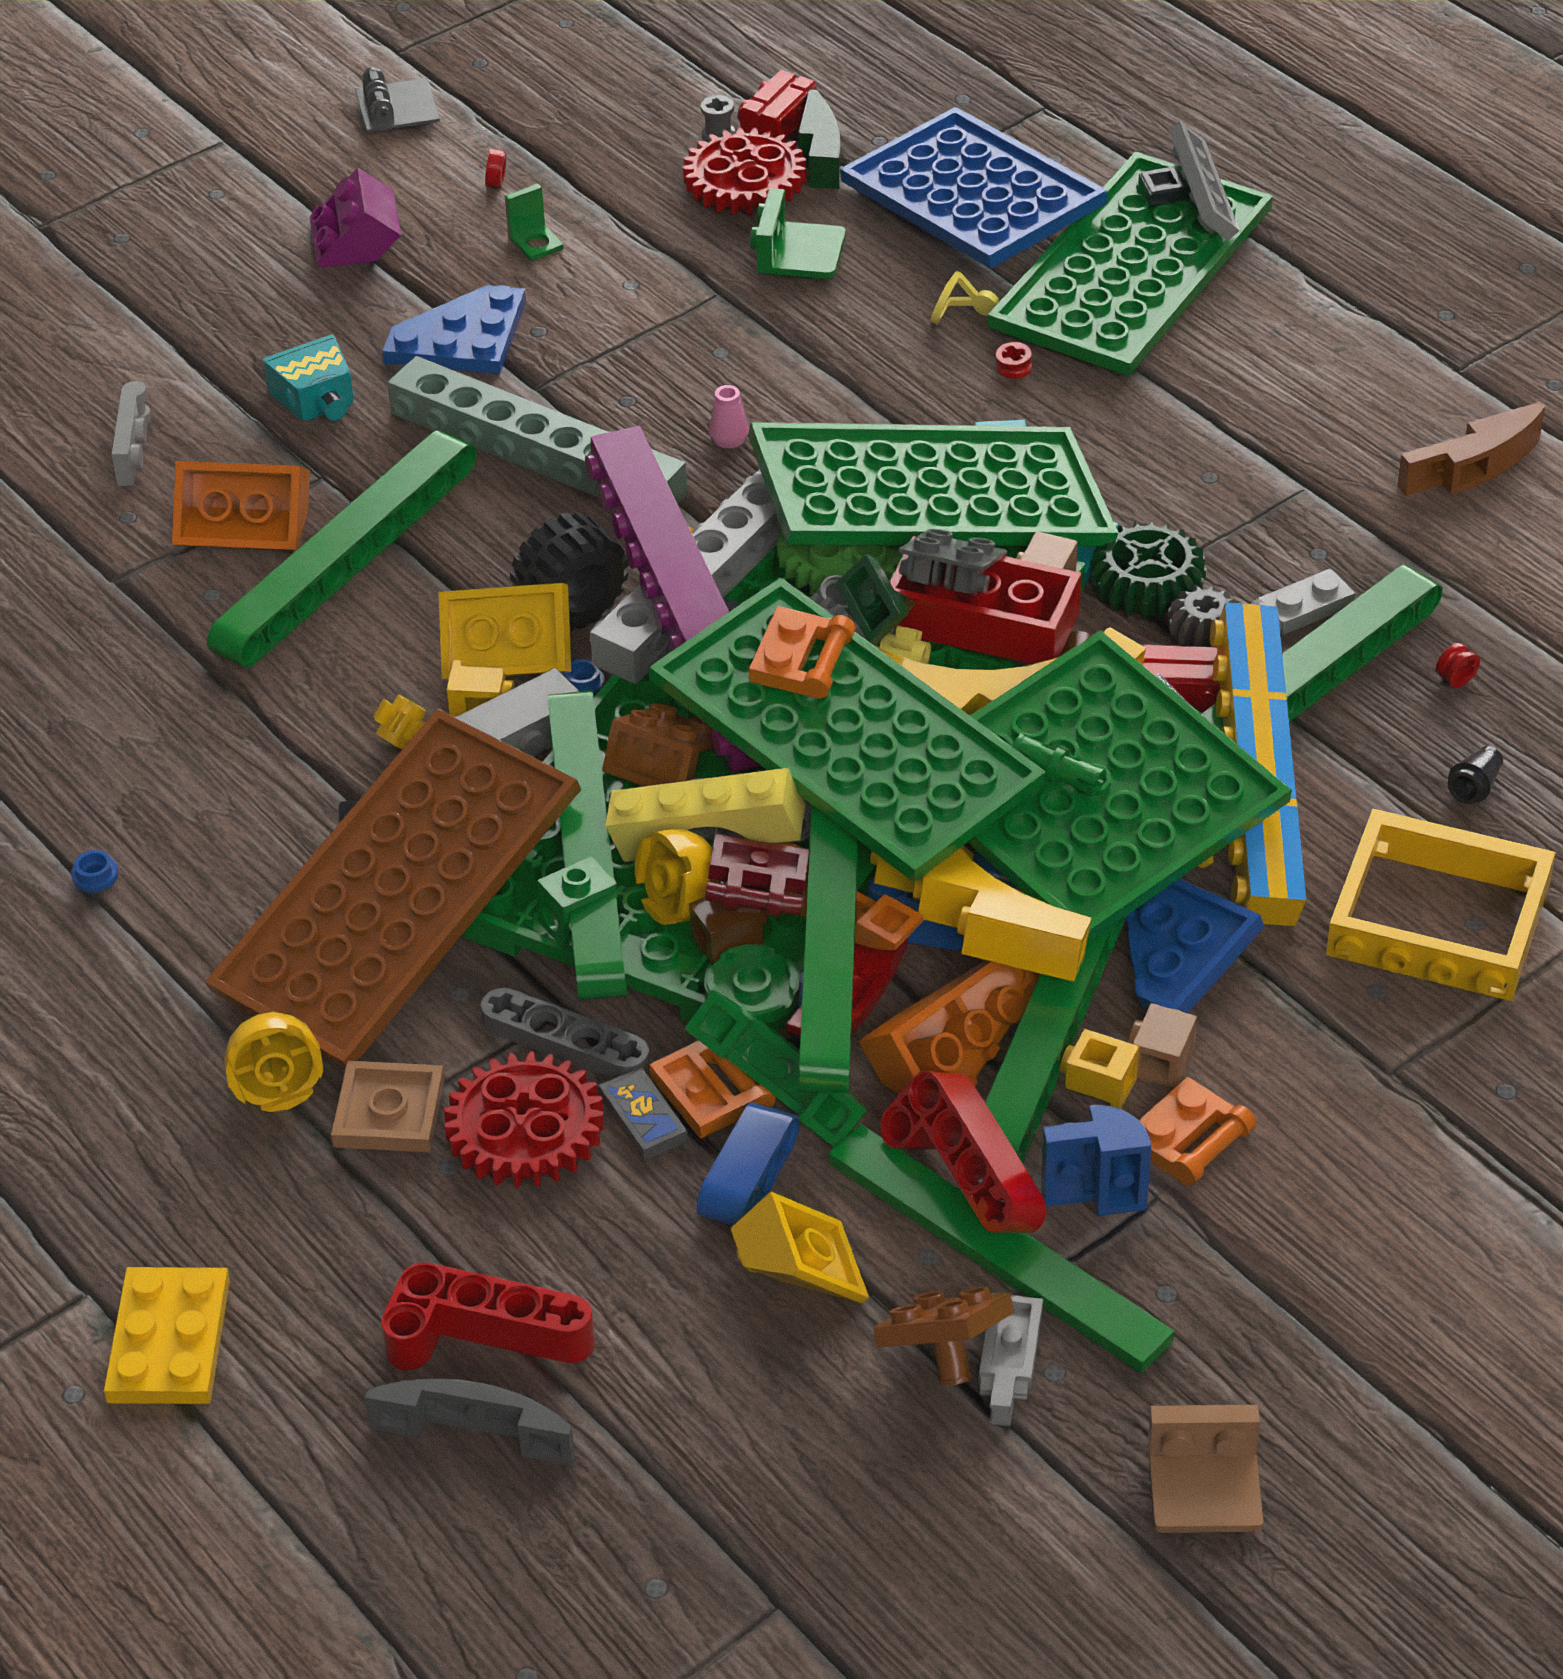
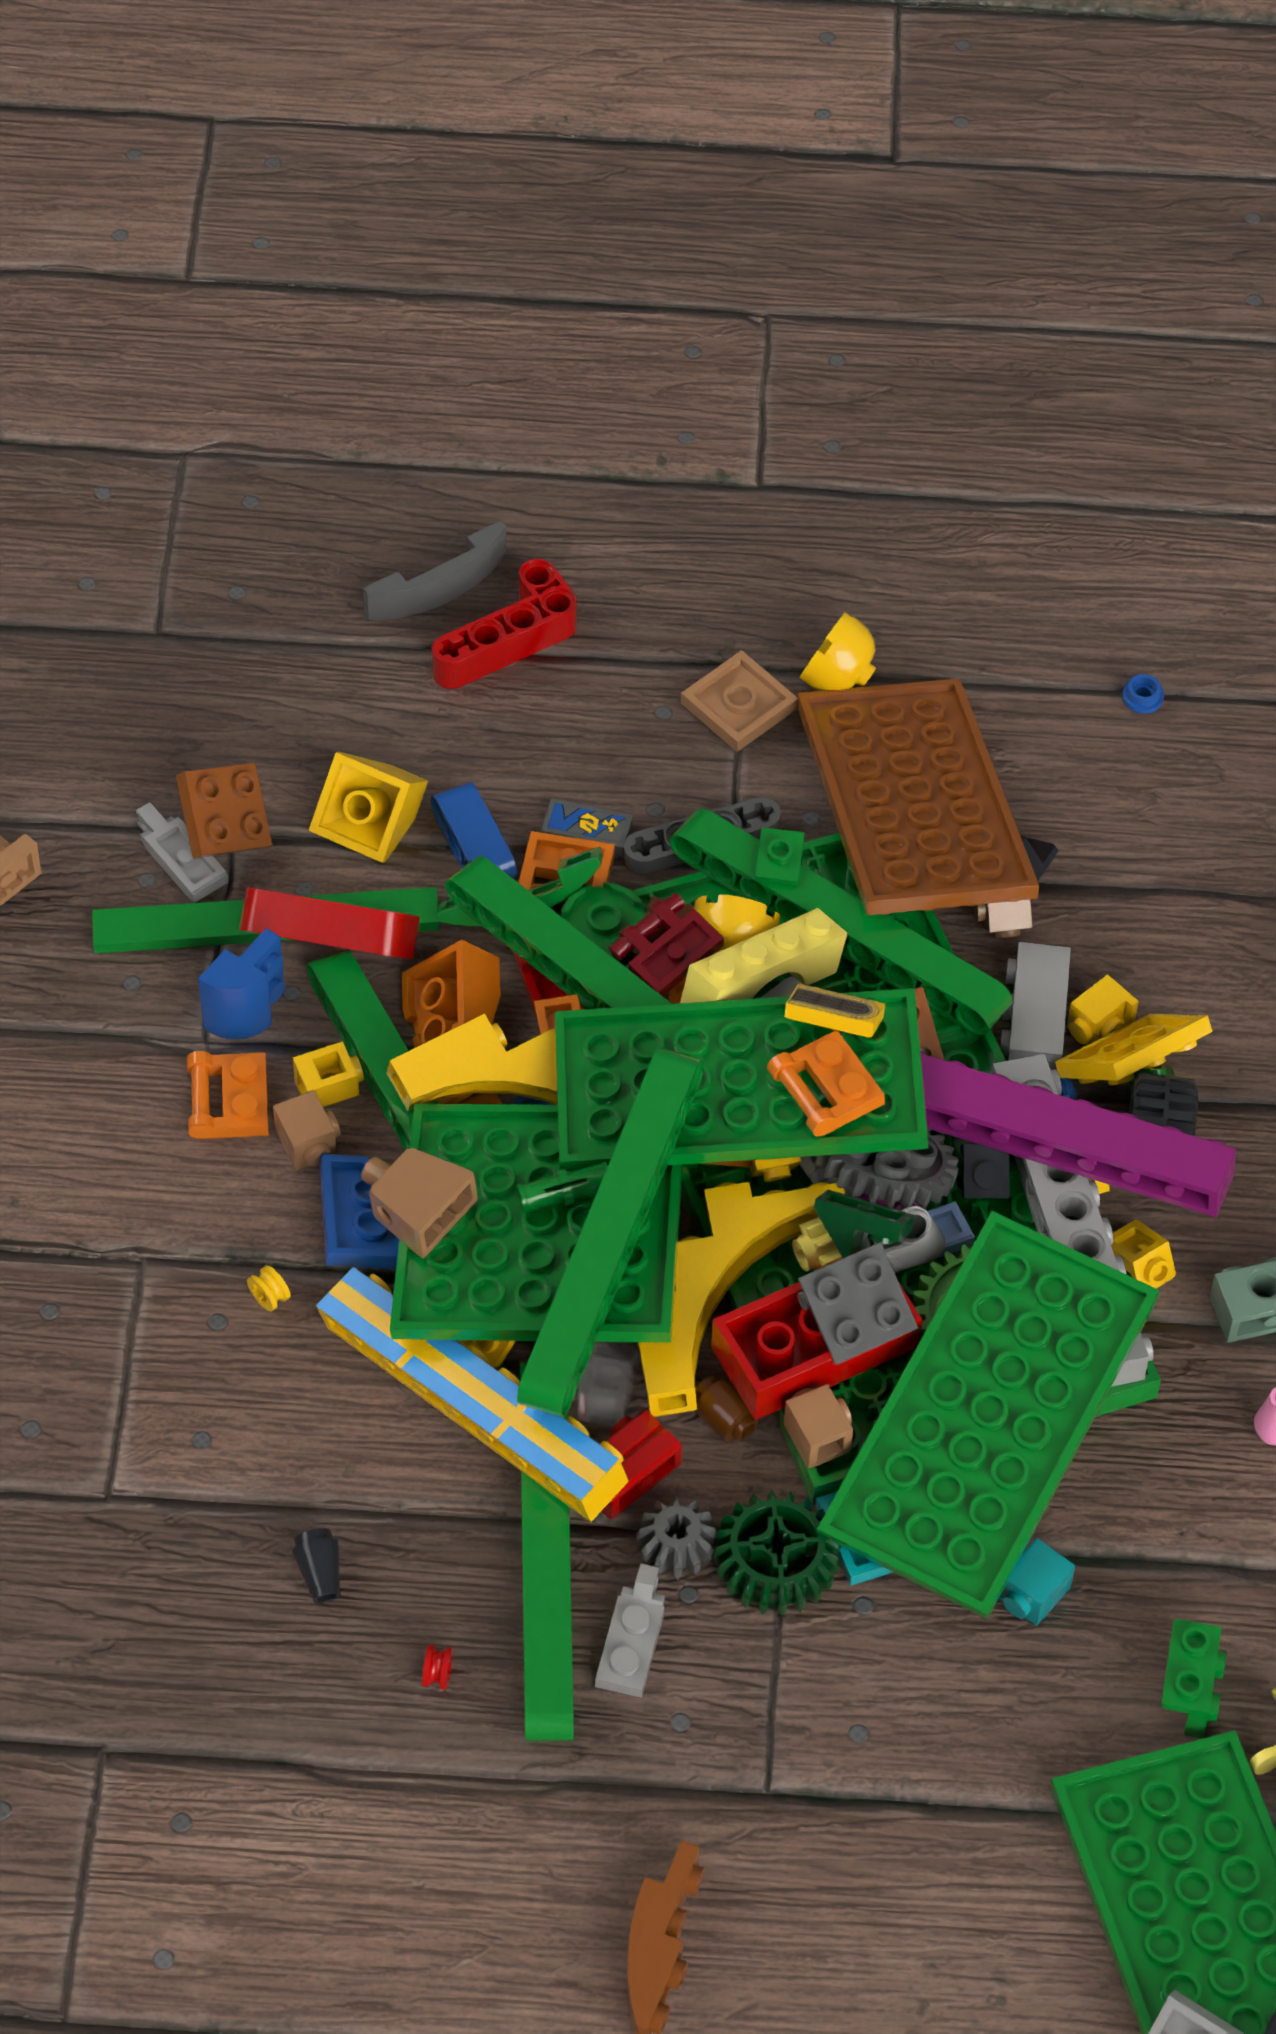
camera: 130 degrees right, 10 degrees up
(167, 1336) = (677, 496): yellow plate -> none
(399, 720) = (1116, 954): yellow gear -> none
(524, 1119) = (646, 755): red gear -> none
(732, 680) = (834, 1010): none -> tile
(973, 343) = (1190, 1674): none -> green bracket
(1013, 351) = (1155, 1729): red bush -> none
(1067, 689) = (610, 1233): none -> green beam
(1173, 835) = (419, 1197): none -> medium nougat torso
(1319, 962) = (268, 1288): none -> yellow bush
(1454, 853) = (253, 1470): yellow window -> none

